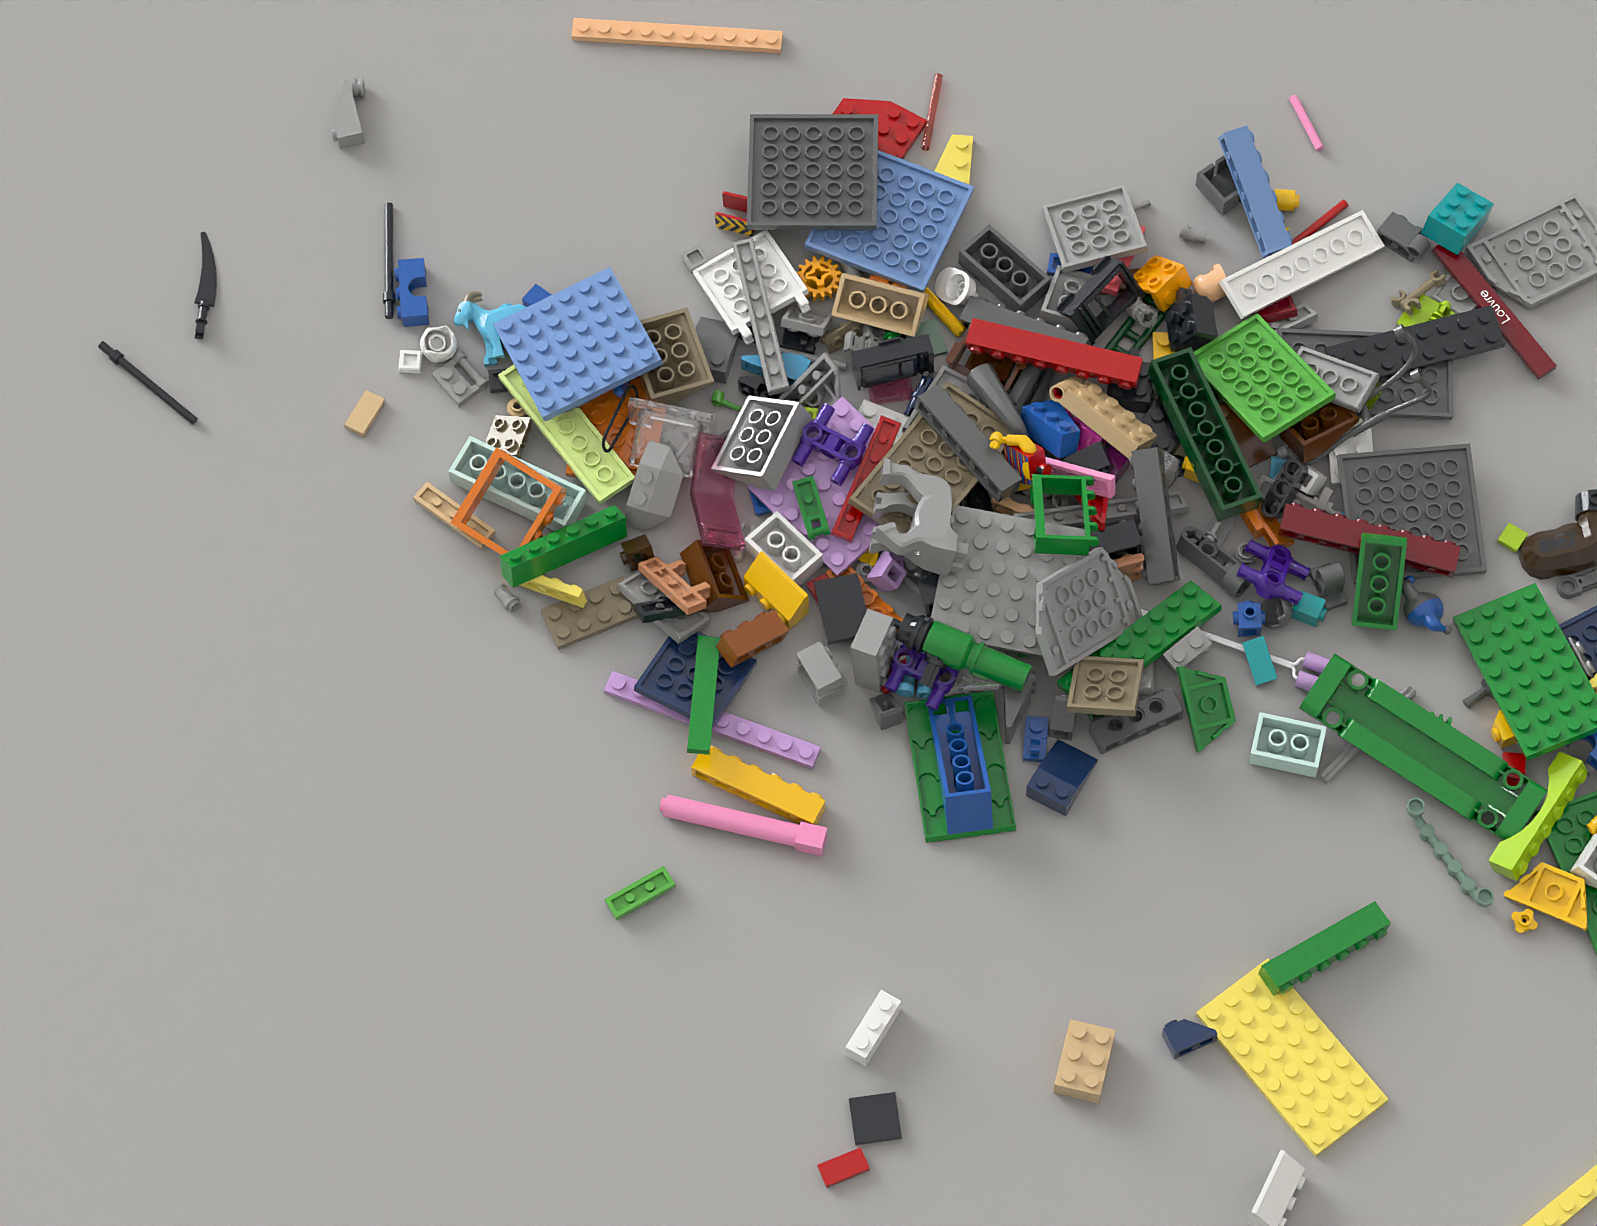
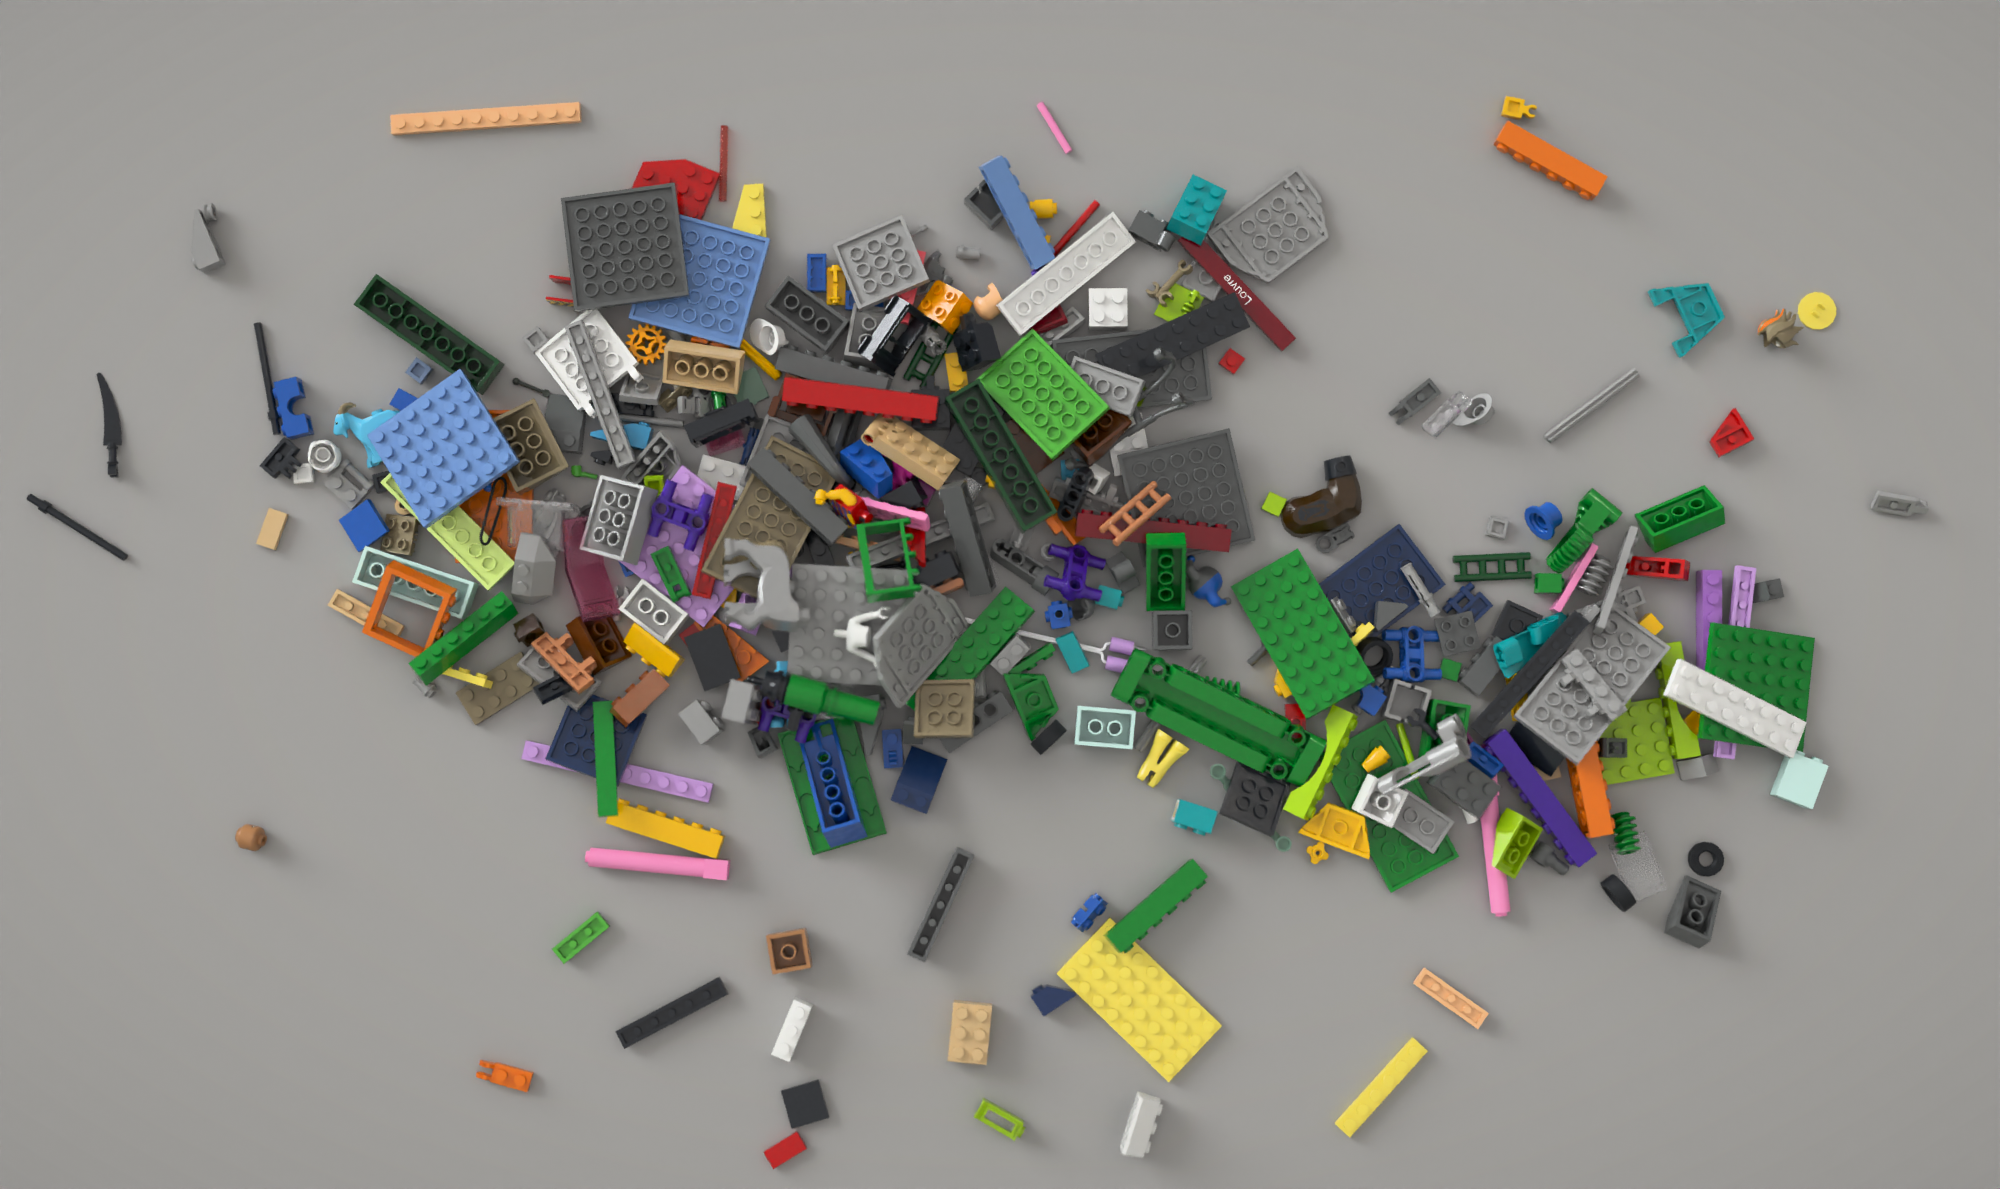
camera: 10 degrees left, 20 degrees up
(278, 730) = (250, 837): none -> medium nougat head
(390, 342) = (282, 459): none -> black hinge
(469, 419) = (364, 525): none -> blue tile
(525, 1035) = (506, 1075): none -> orange hinge
(559, 273) = (419, 370): none -> sand blue plate
(576, 232) = (428, 333): none -> dark green brick
(695, 315) = (545, 393): none -> pearl dark grey hinge
(733, 991) = (671, 1012): none -> black plate
(883, 938) = (789, 951): none -> medium nougat brick
(1020, 587) = (860, 635): none -> white piece
(1021, 230) = (817, 273): none -> blue plate
(1040, 246) = (836, 286): none -> yellow hinge
(1069, 911) = (940, 904): none -> dark grey brick
(1106, 1167) = (1000, 1119): none -> lime window
(1154, 248) = (935, 271): none -> dark grey piece
(1209, 664) = (1029, 661): none -> green plate
(1220, 745) = (1048, 737): none -> black tyre
(1252, 943) = (1095, 906): none -> blue hinge
(1344, 307) = (1107, 309): none -> white brick
(1348, 522) = (1135, 524): none -> nougat bar
(1351, 772) = (1173, 753): none -> light yellow piece
(1379, 650) = (1172, 630): none -> dark grey brick
(1381, 854) = (1193, 816): none -> teal brick
(1456, 845) = (1254, 799): none -> black plate
(1479, 383) = (1231, 361): none -> red plate

